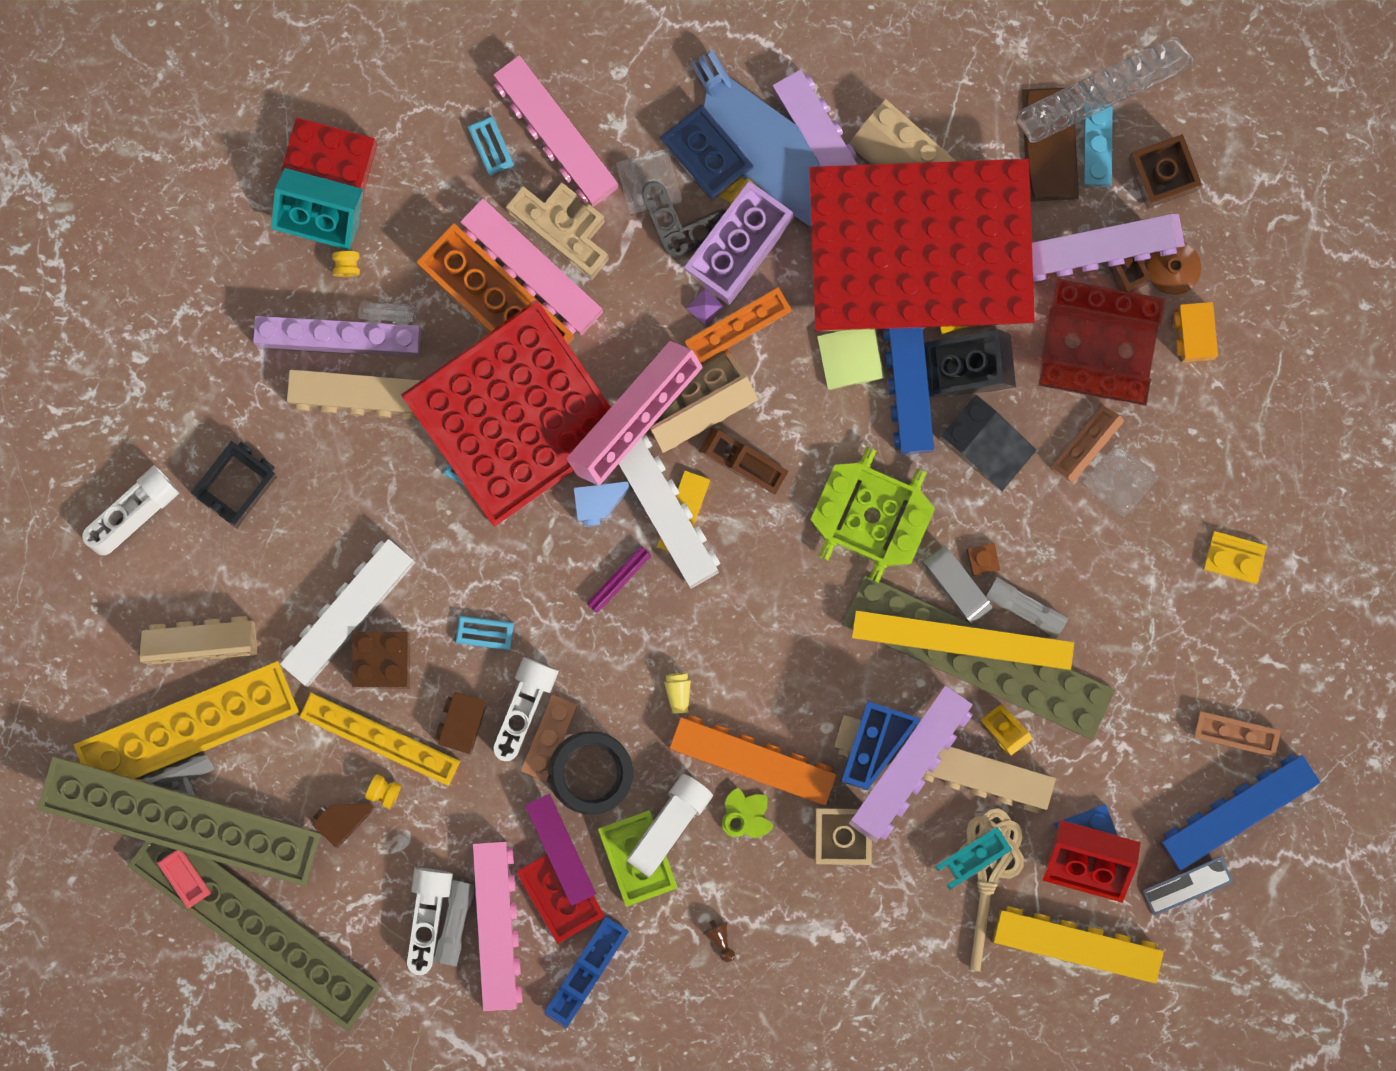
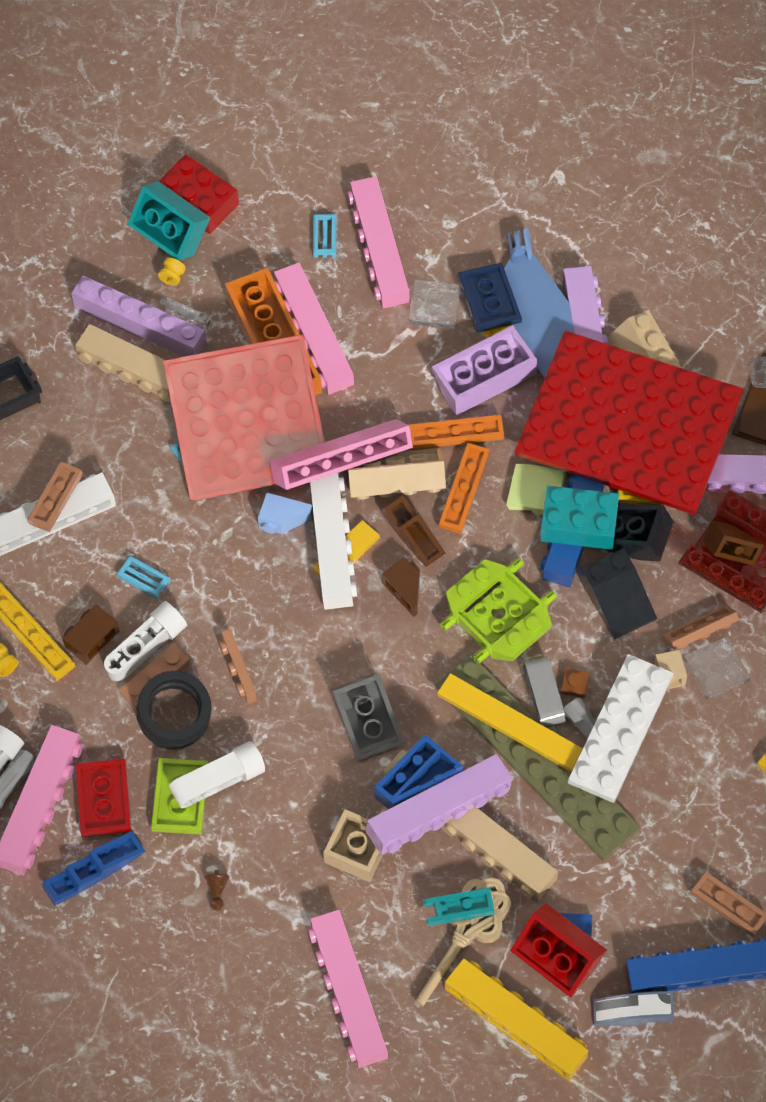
camera: 25 degrees right, 20 degrees down
(354, 592) = (55, 496): none -> nougat plate
(381, 660) = (51, 561): reddish brown brick -> none
(560, 849) = (120, 760): magenta tile -> none
(563, 225) = (351, 306): tan piece -> none
(618, 579) = (270, 579): magenta axle -> none
(631, 693) = (237, 666): none -> nougat plate
(674, 228) = (438, 342): black beam -> none
(678, 691) = (276, 681): light yellow cone -> none
(705, 307) = (436, 410): medium lavender slope -> none
(749, 812) = (289, 800): lime plate -> none
(753, 761) = (310, 758): orange brick -> none
(763, 526) = (404, 583): none -> reddish brown slope
(776, 388) = (464, 488): none -> orange plate
(788, 689) = (367, 716): none -> dark grey slope
(900, 988) = (348, 989): none -> bright pink brick
(917, 381) = (579, 517): none -> teal brick
(1006, 729) = (533, 821): yellow slope -> none
(1056, 597) = (620, 728): none -> white plate
(1076, 505) = (672, 662): none -> tan panel
(1084, 340) = (732, 543): none -> reddish brown slope

